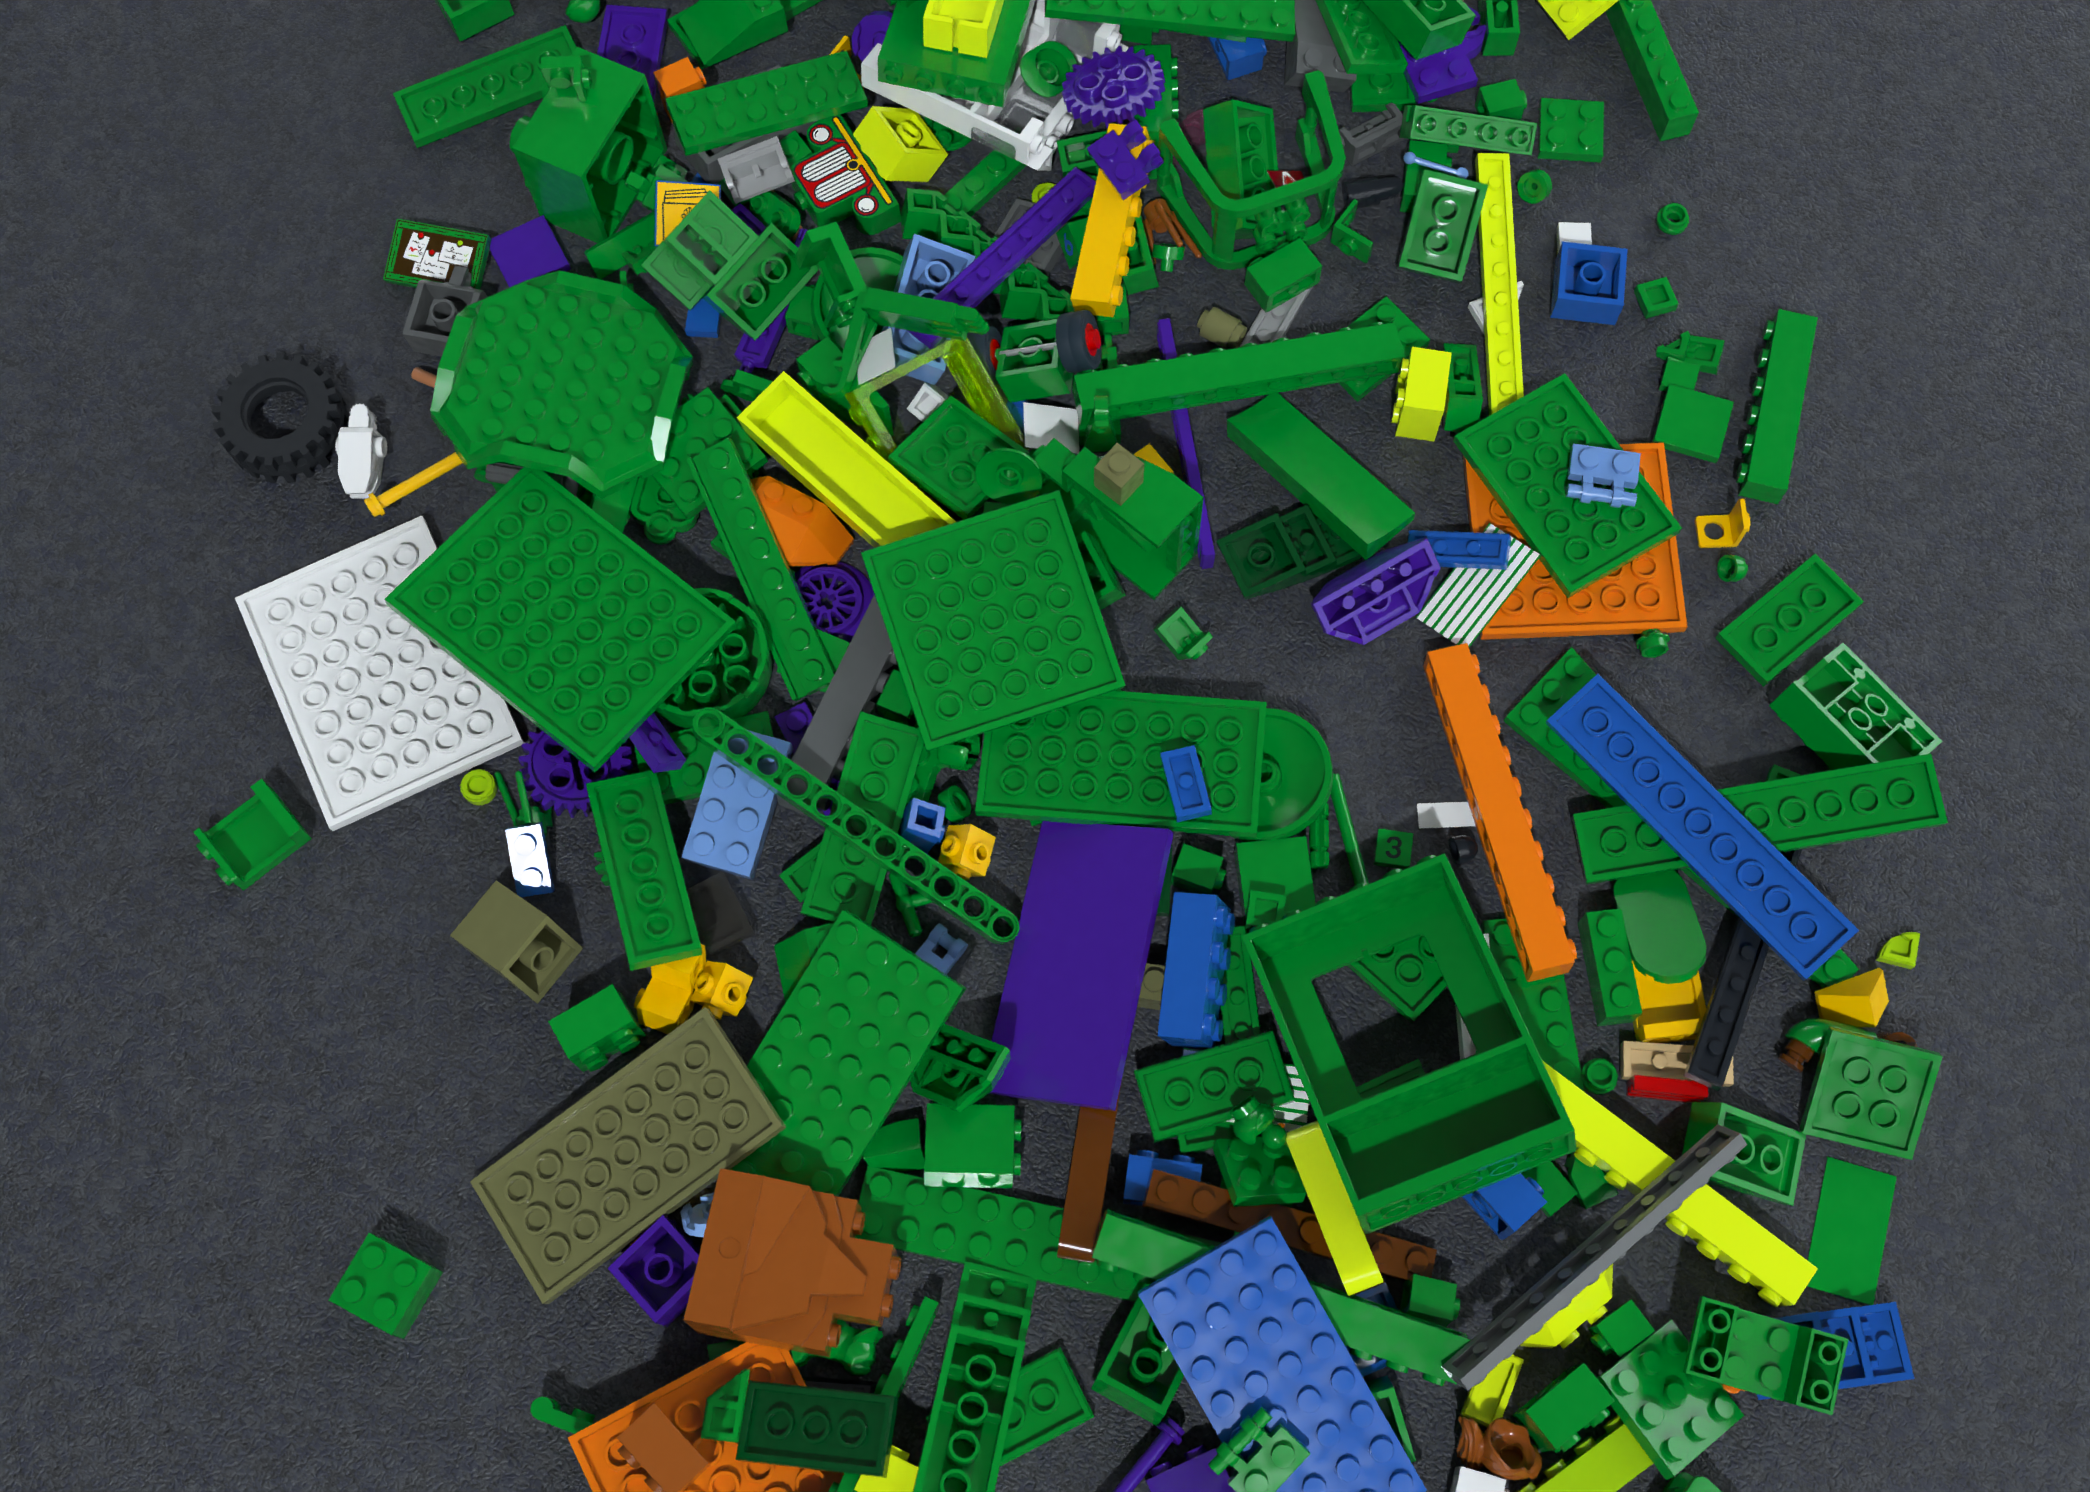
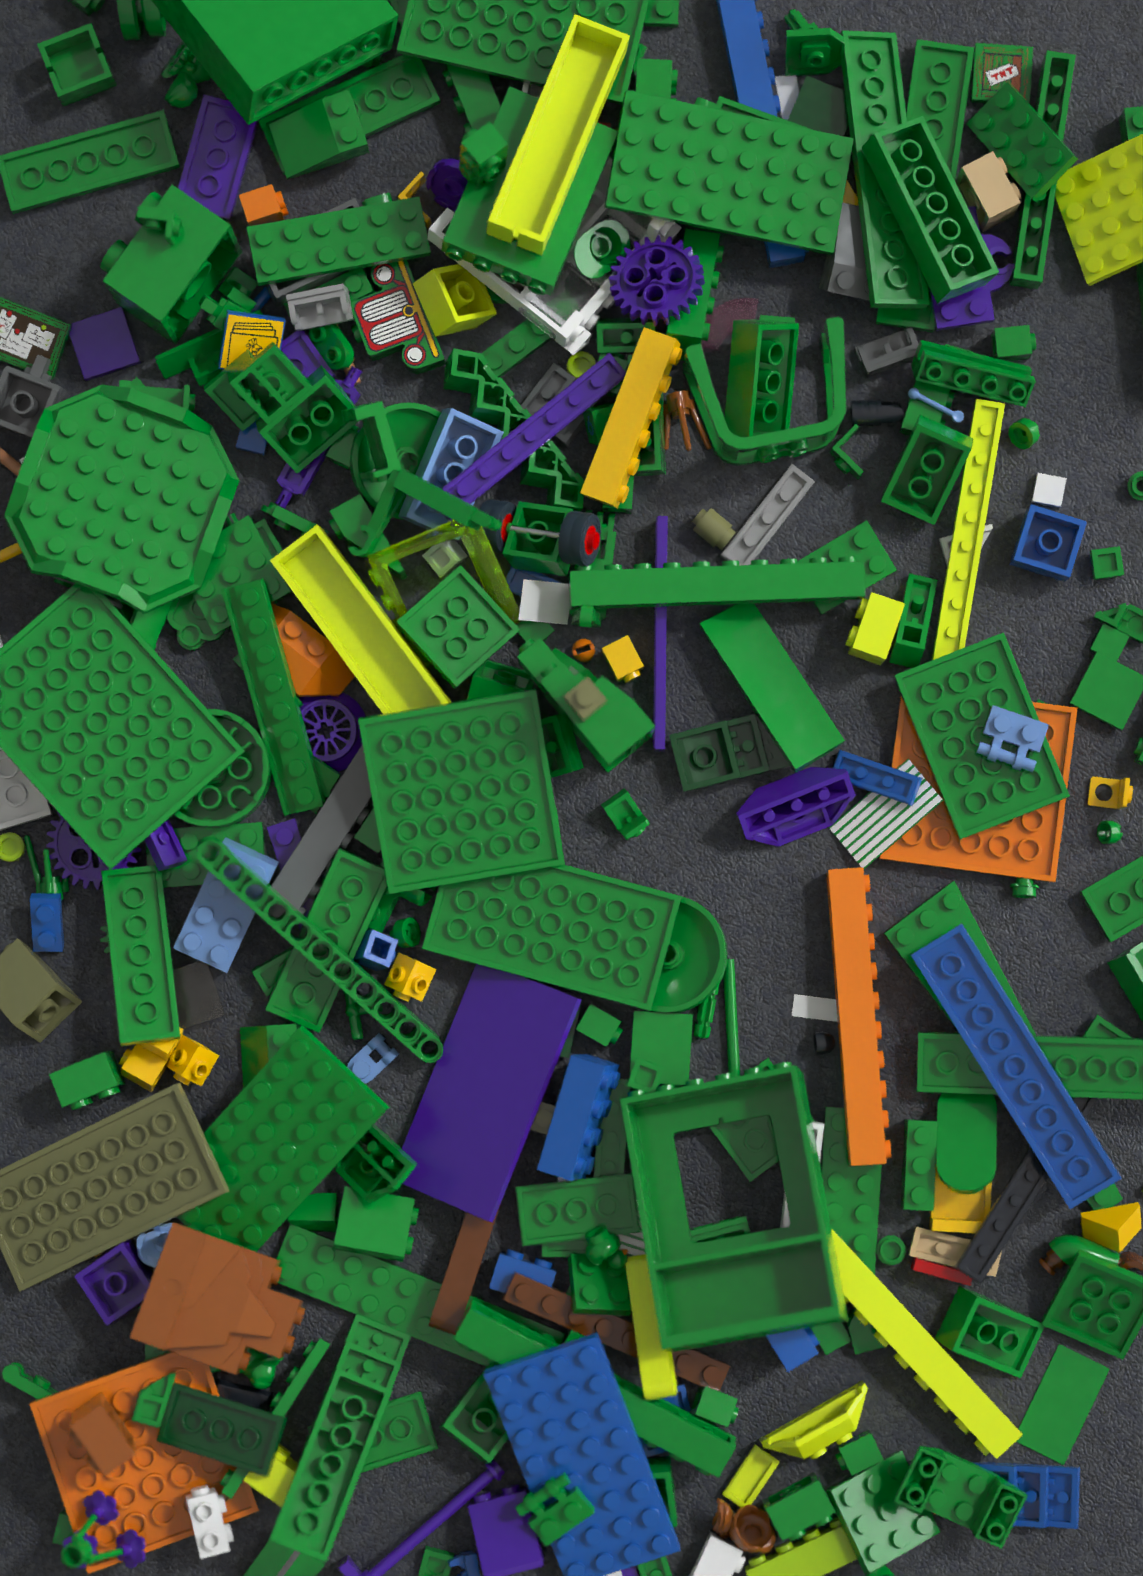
camera: 10 degrees right, 15 degrees up
(877, 358) = (401, 526): white sticker -> none
(1008, 476) = (496, 662): green dish -> none
(1118, 164) = (644, 373): dark purple plate -> none
(1168, 253) = (676, 445): green tile -> none
(1185, 783) = (599, 960): blue plate -> none
(1282, 178) = (802, 390): dark red sticker -> none
(1282, 274) = (776, 488): green brick -> none
(1393, 849) = (765, 1031): green tile -> none
(1570, 130) = (1072, 377): green plate -> none
(1593, 1257) = (846, 1401): dark grey plate -> none

